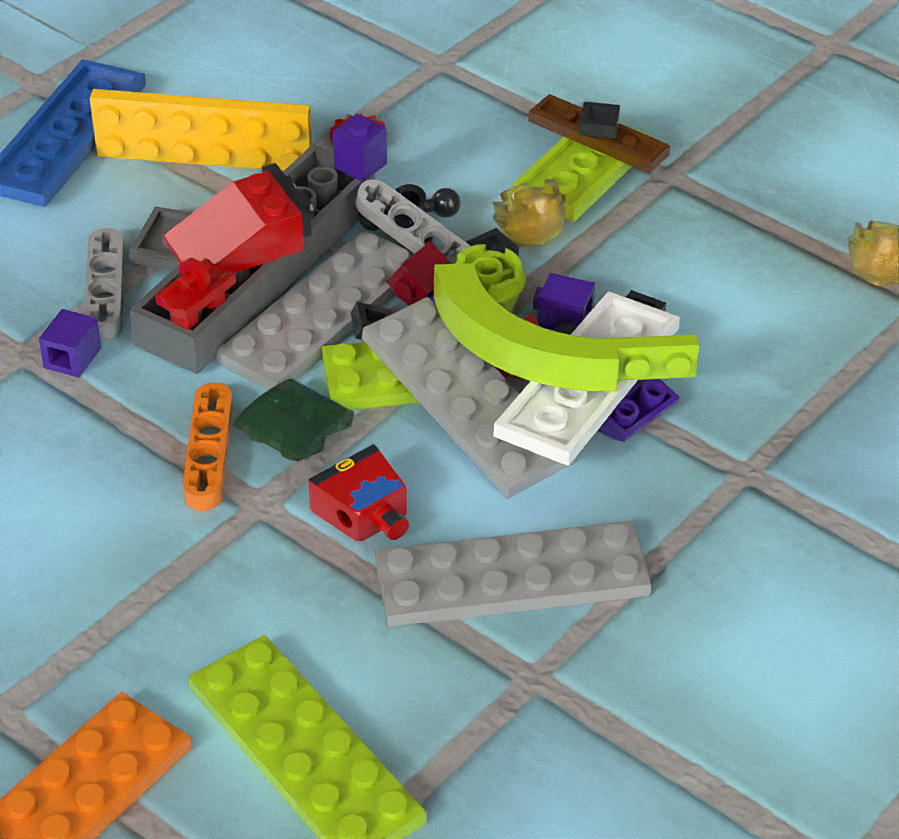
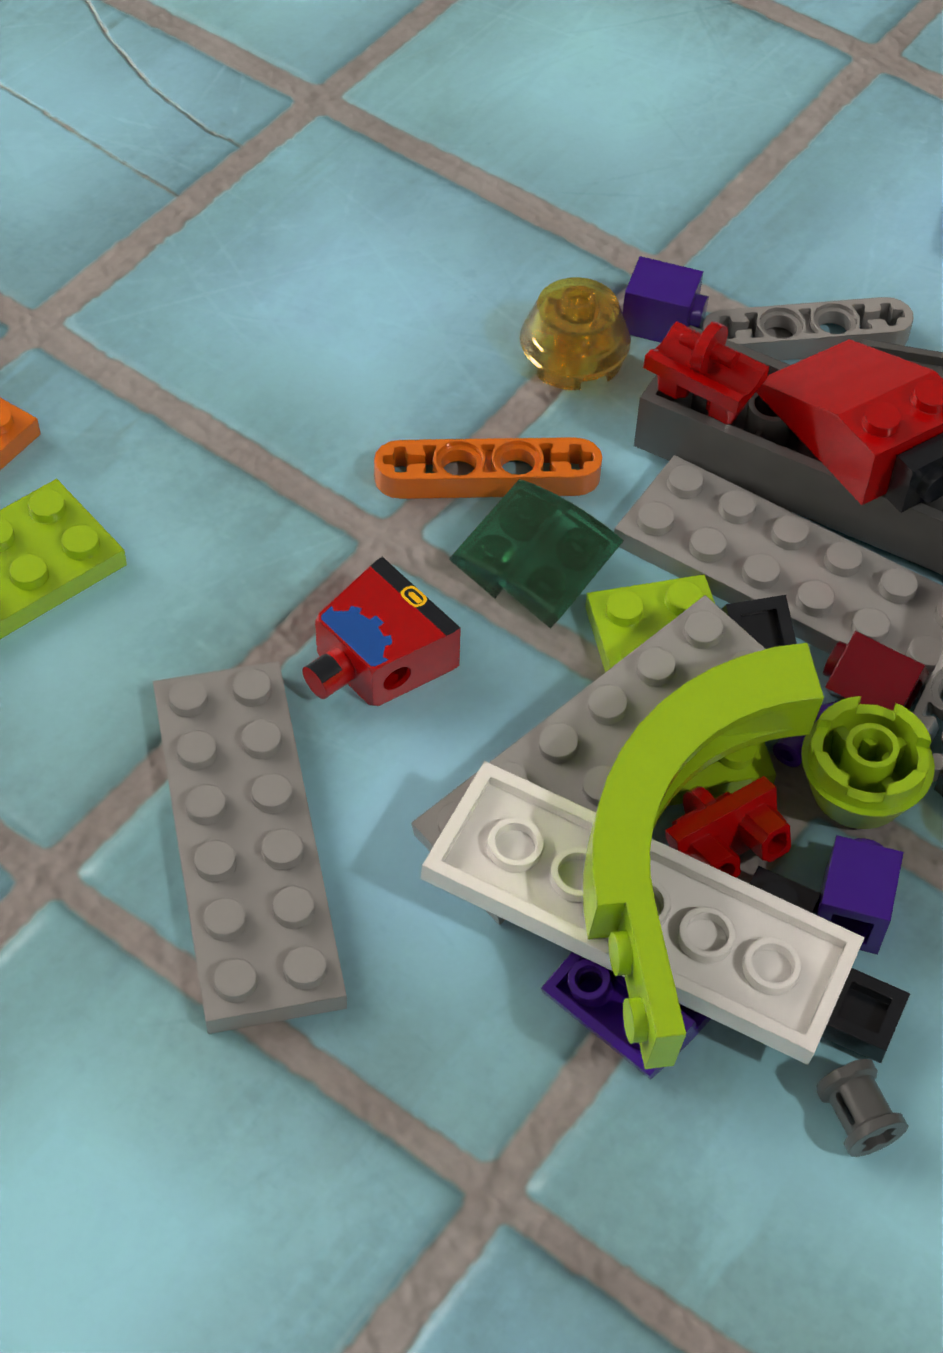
camera: 85 degrees right, 10 degrees up
(93, 387) = (575, 333): none -> clear yellow cone
(699, 318) = (861, 1108): none -> dark grey bush

